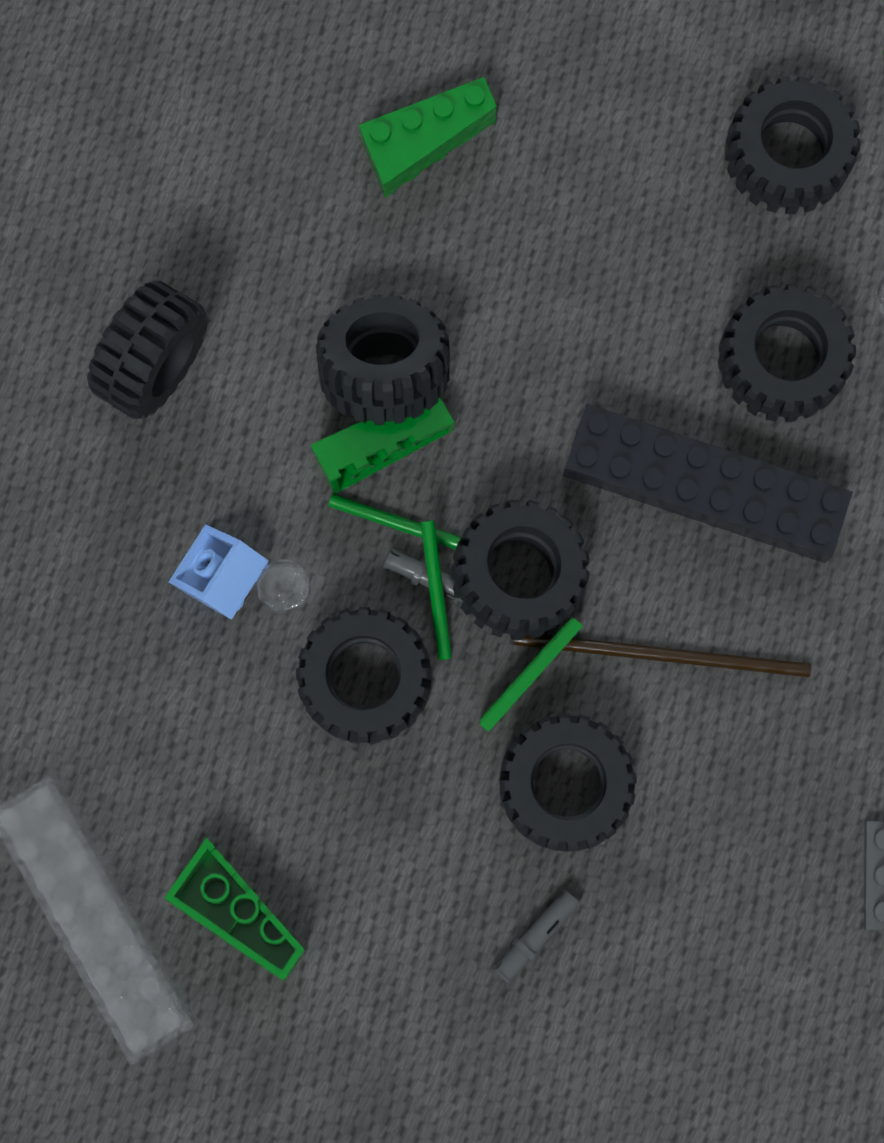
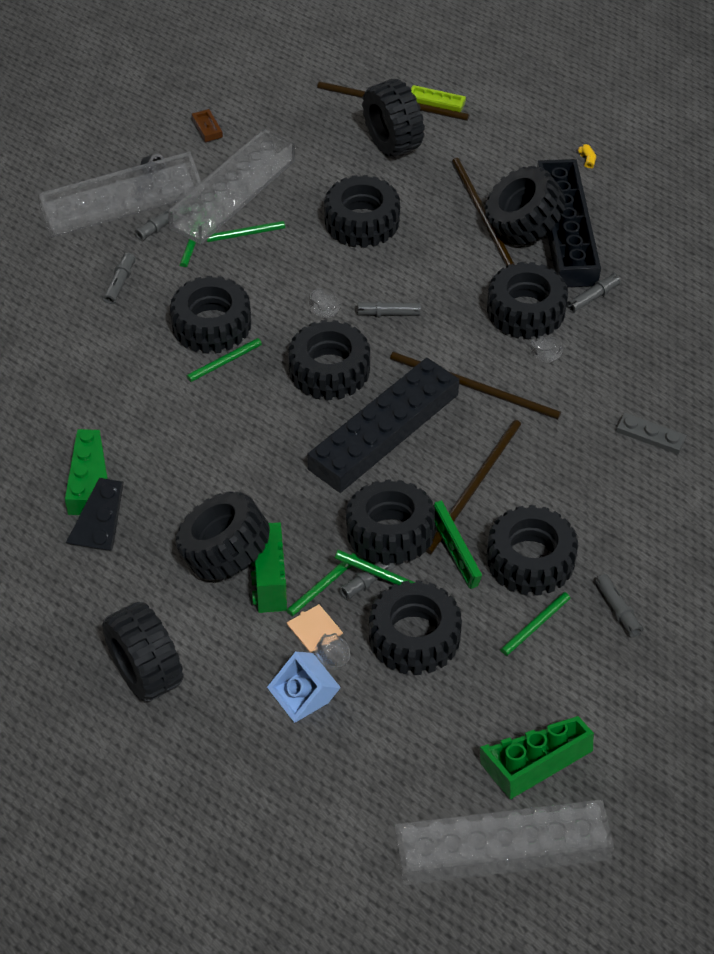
camera: 70 degrees left, 30 degrees down
(322, 542) = (312, 626): none -> light nougat piece
(355, 183) = (99, 516): none -> black wing
(458, 832) = (535, 624): none -> green bar
(727, 205) = (224, 360): none -> green bar
(854, 582) = (487, 389): none -> dark brown piece

